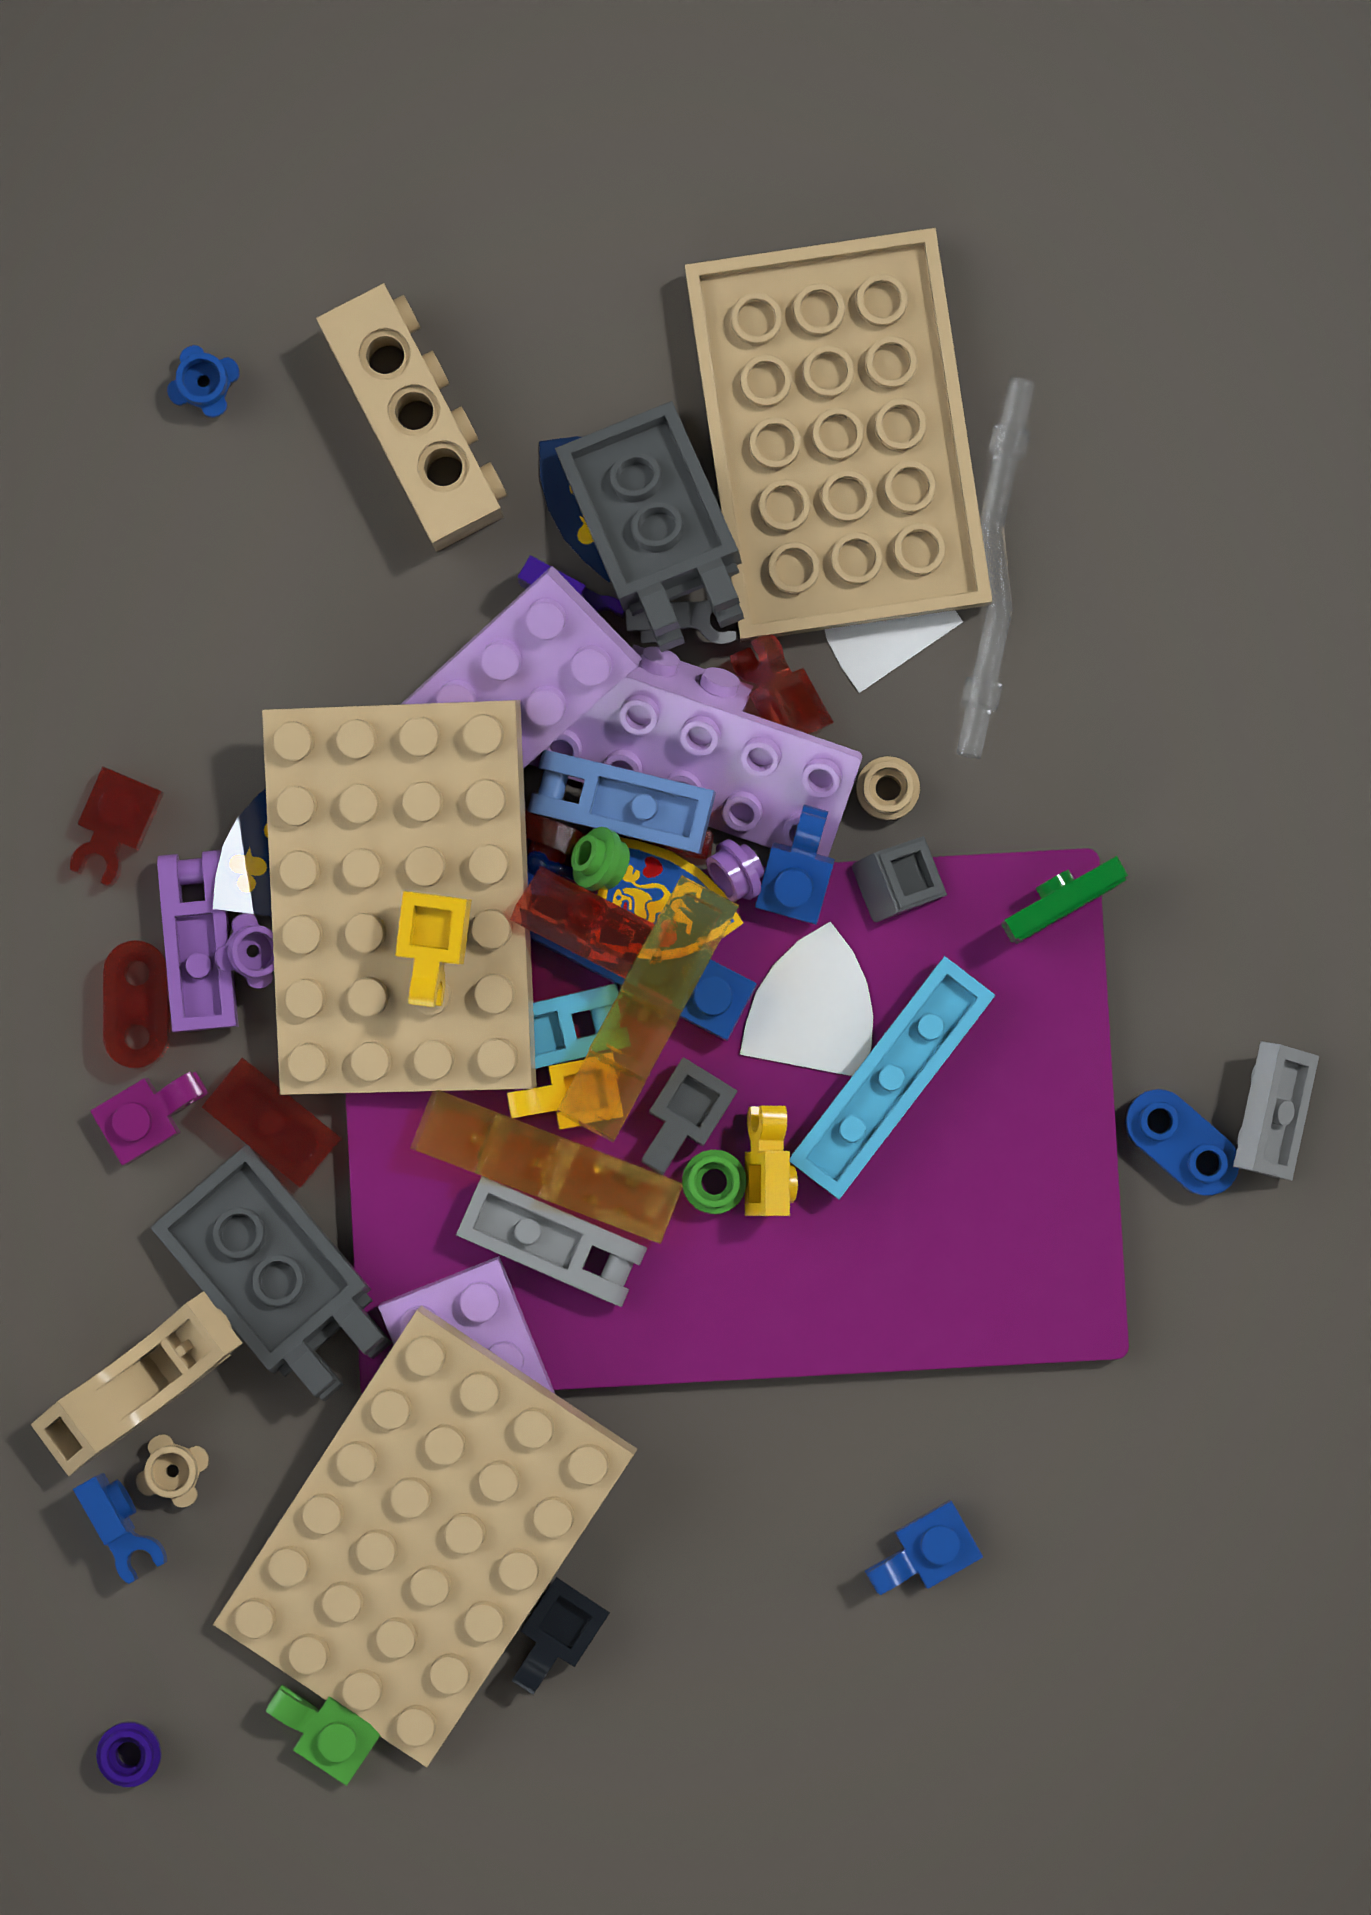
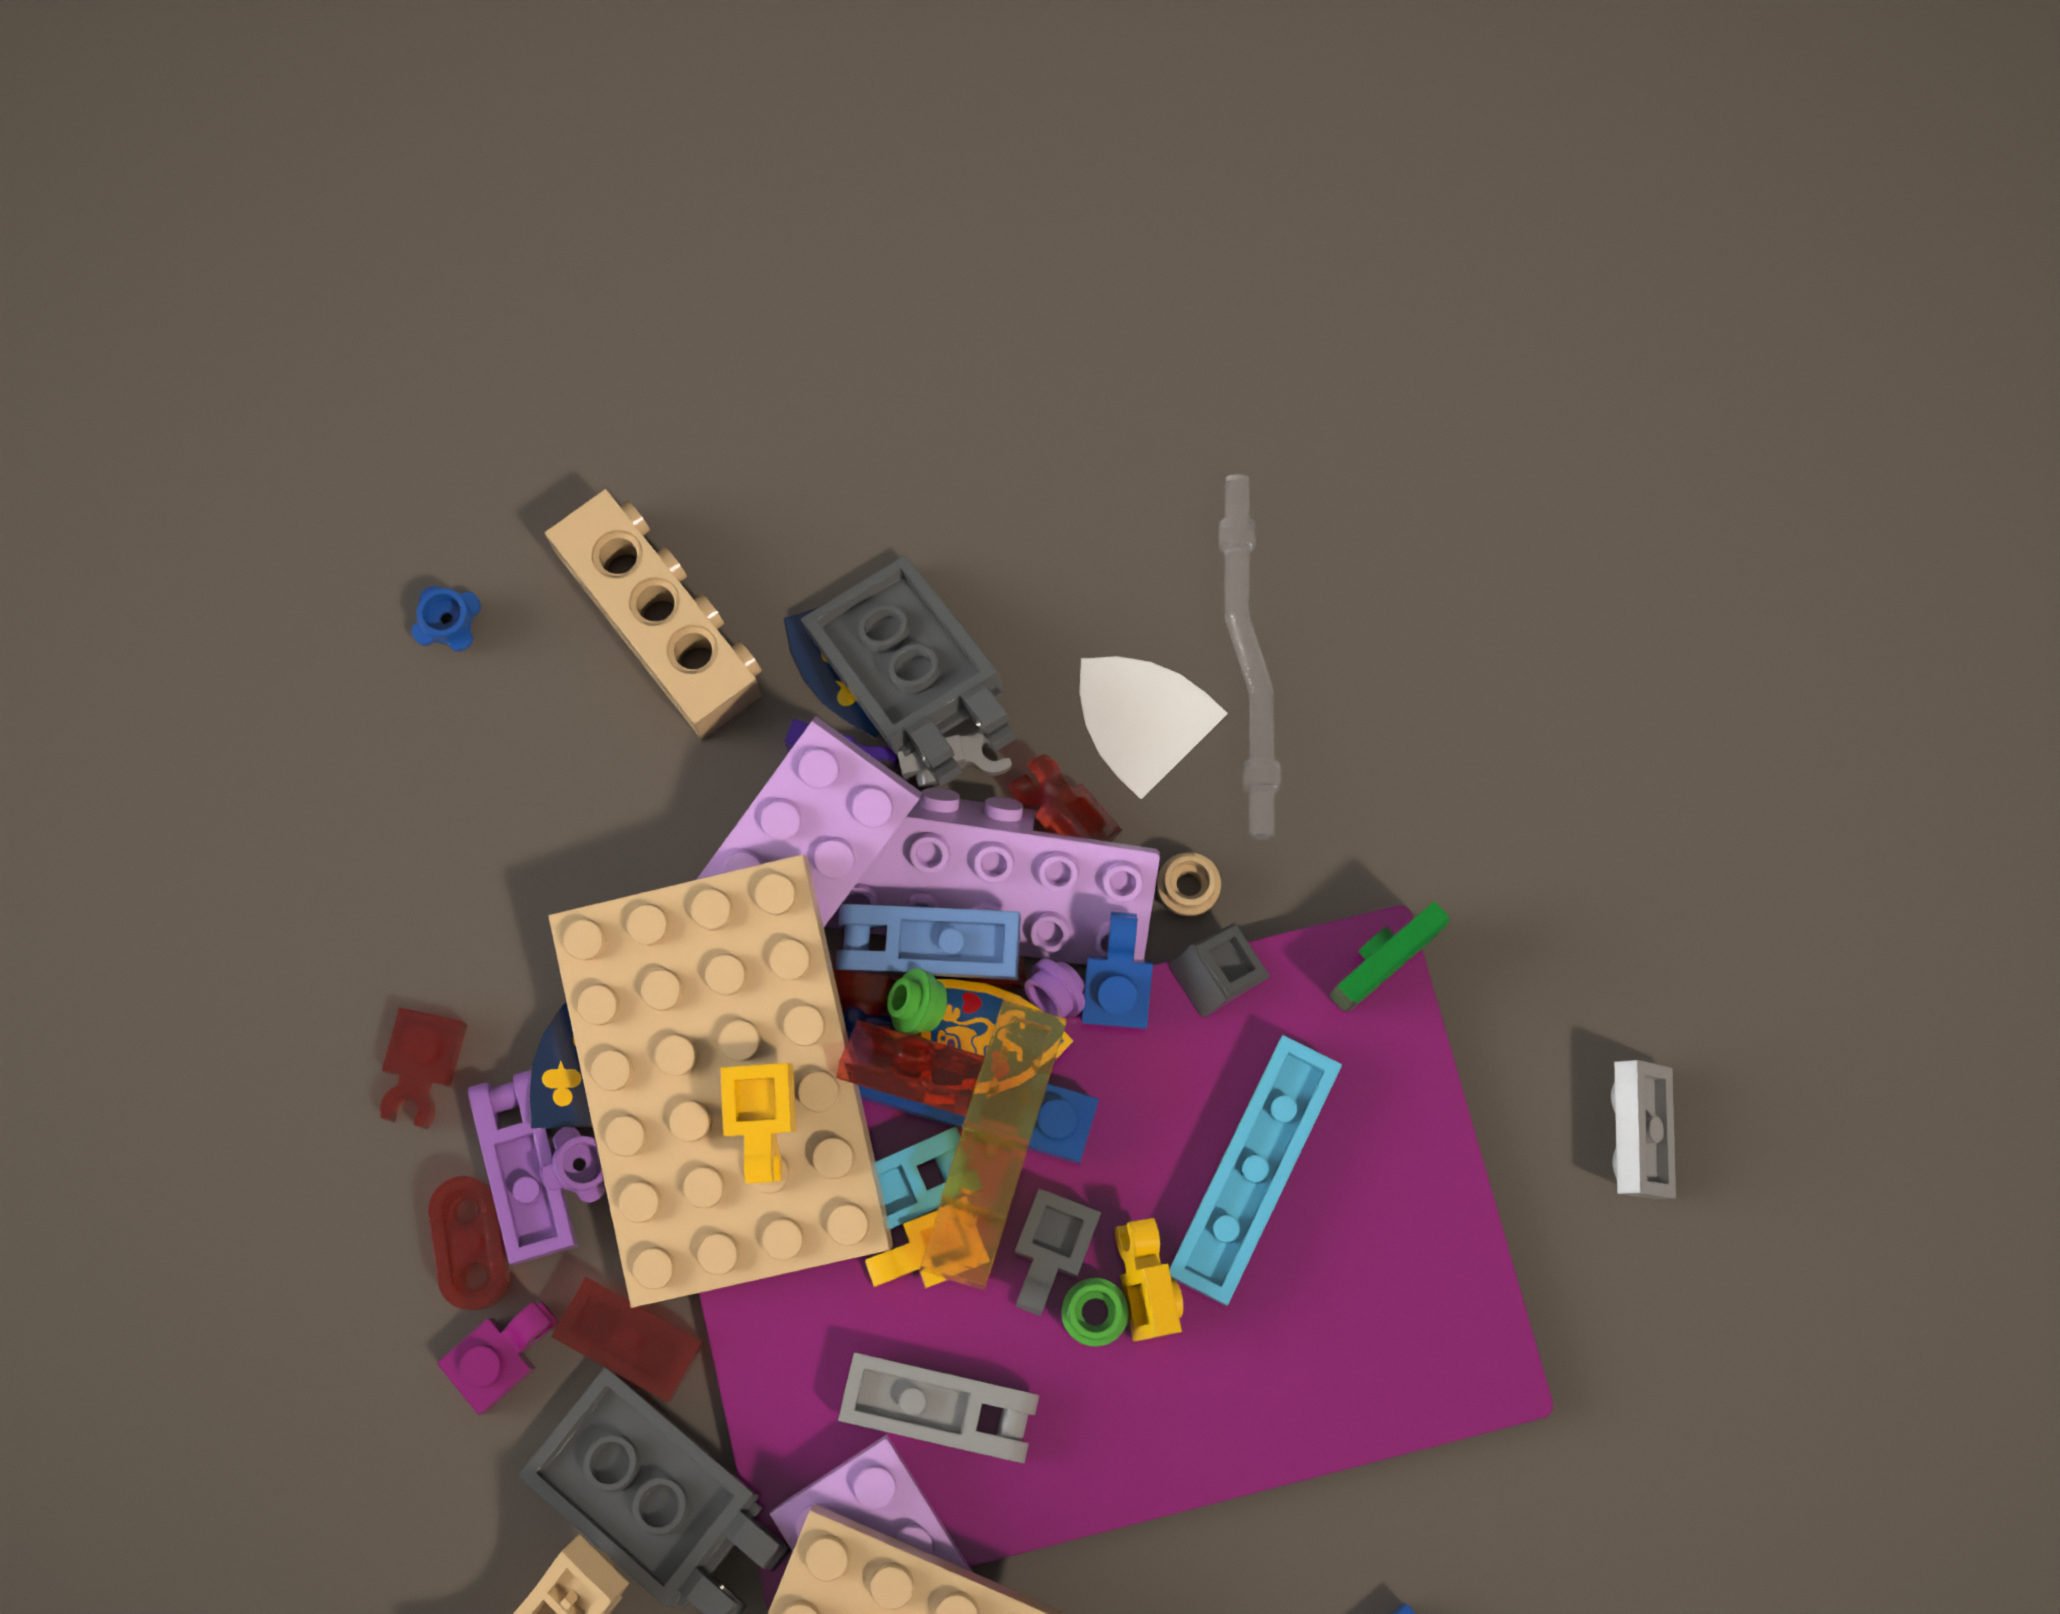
camera: 20 degrees left, 10 degrees down
(547, 1166) = (920, 1329): clear yellow slope -> none
(813, 1007) = (1159, 1115): white sticker -> none
(839, 433) = (1074, 558): tan plate -> none
(1182, 1142) = (1558, 1181): blue plate -> none

